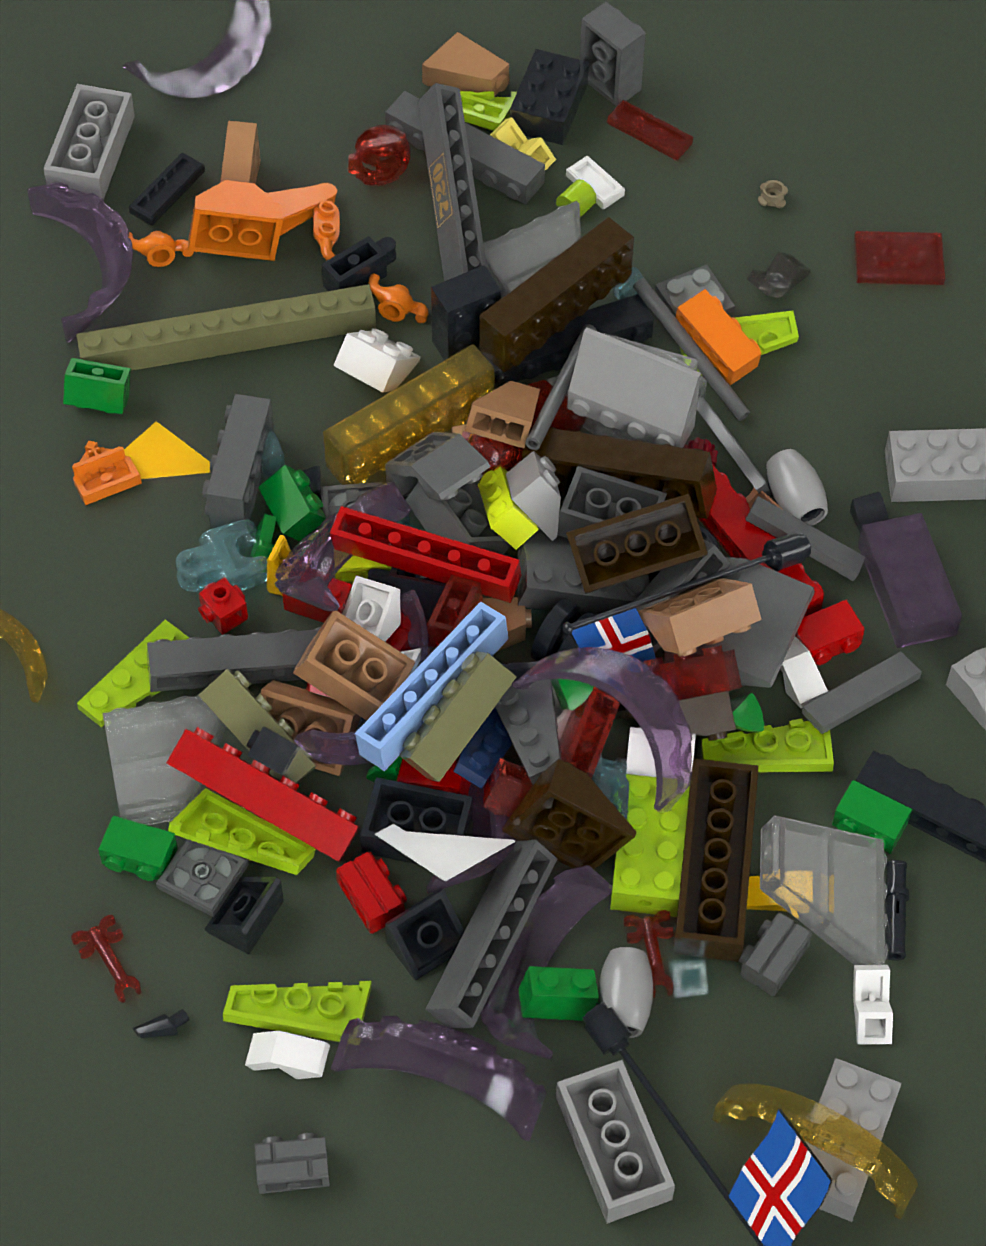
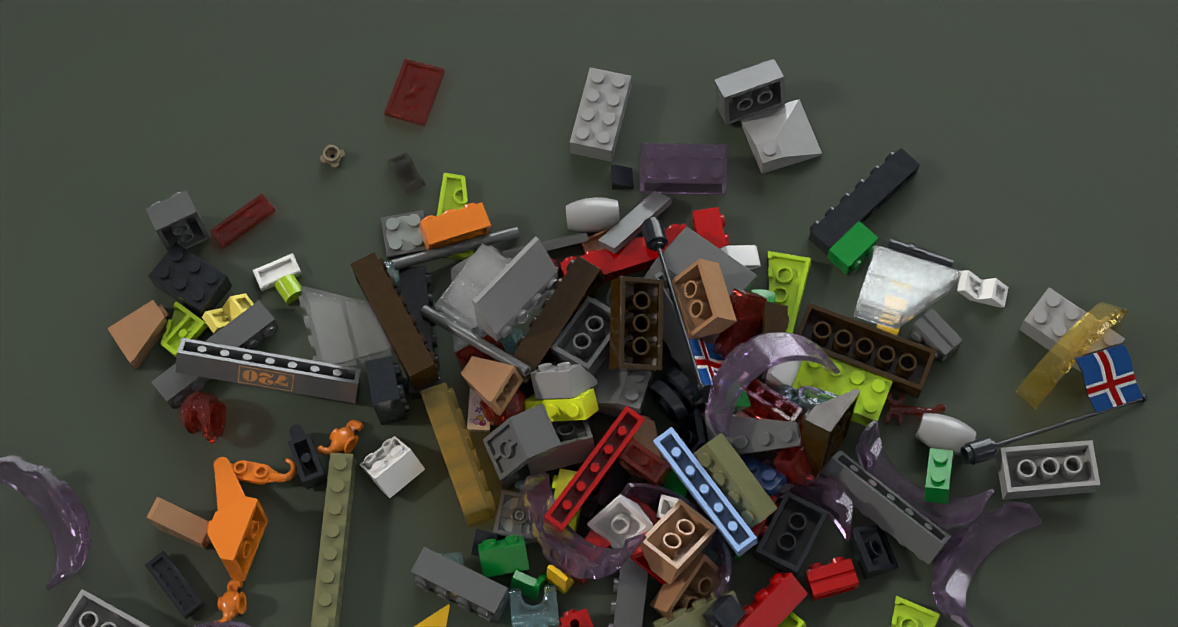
camera: 70 degrees left, 10 degrees up
(442, 853) = (830, 519): white sticker -> none
(689, 977) = (935, 393): clear light blue slope -> none
(861, 692) = (759, 225): dark grey tile -> none

